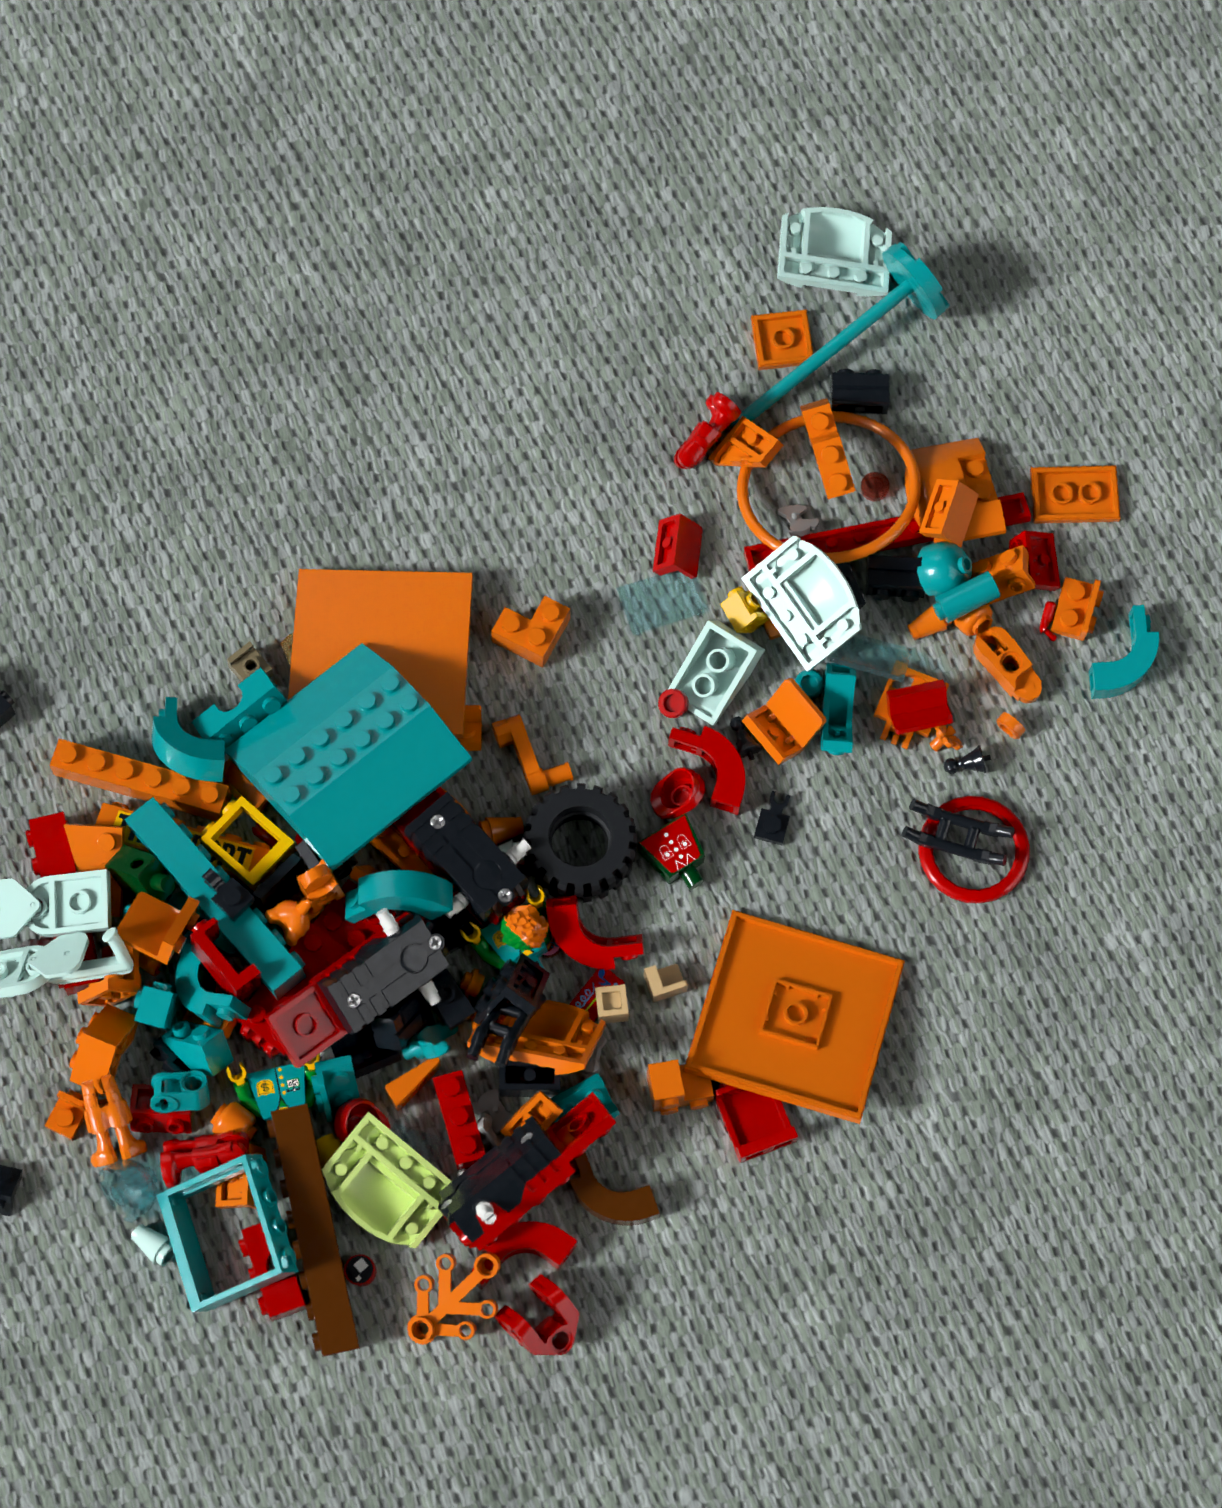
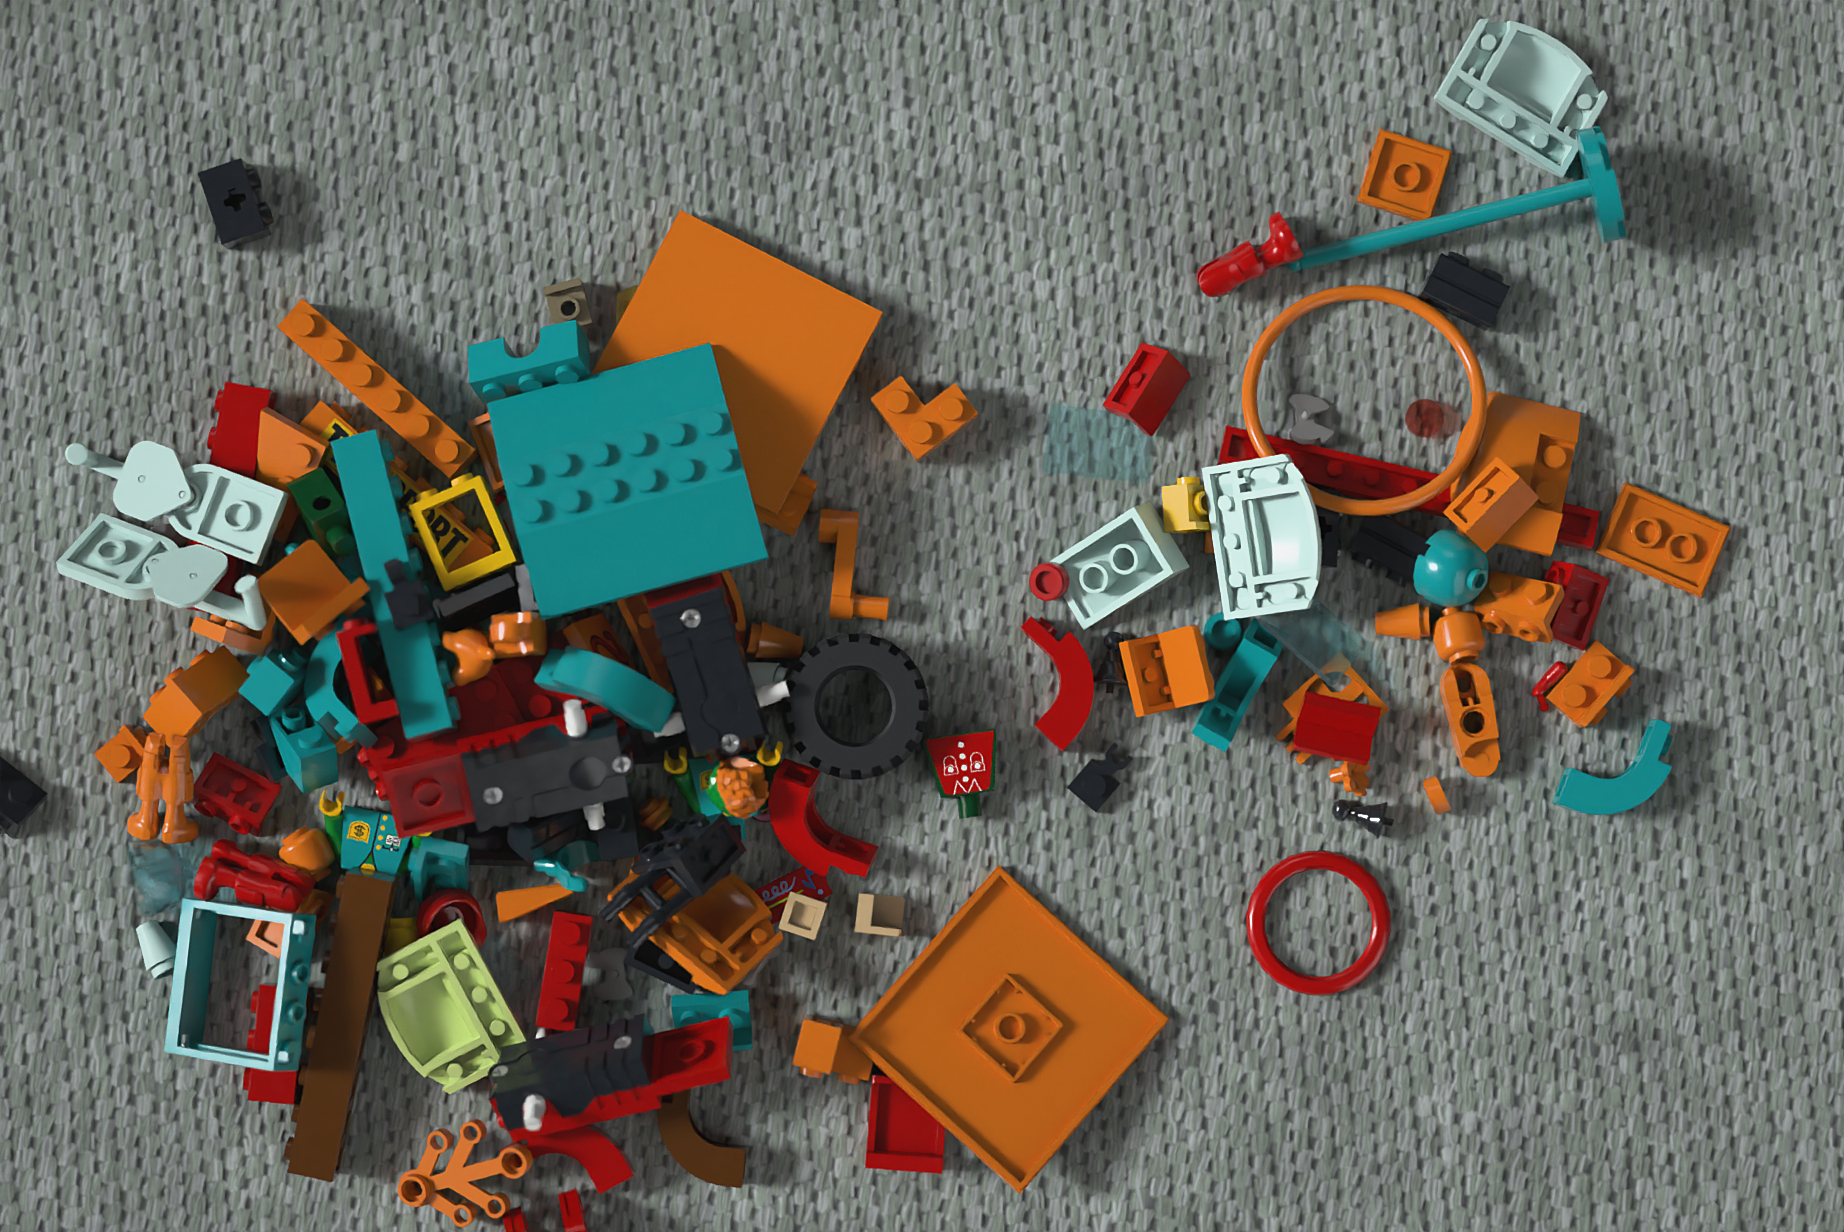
camera: 30 degrees right, 15 degrees up
(182, 1091) = (252, 787): teal piece -> none
(183, 752) = (437, 385): teal arch -> none
(360, 1270) = (377, 1087): tile -> none
(484, 1125) = (588, 995): light grey piece -> none
(539, 1107) = (655, 1002): orange slope -> none
(677, 793) = (1000, 697): red hat -> none
(746, 446) = (1290, 300): orange wing -> none
(827, 448) = (1384, 352): orange arch -> none
(966, 597) = (1458, 621): teal brick -> none
(973, 825) = (1330, 900): black piece -> none

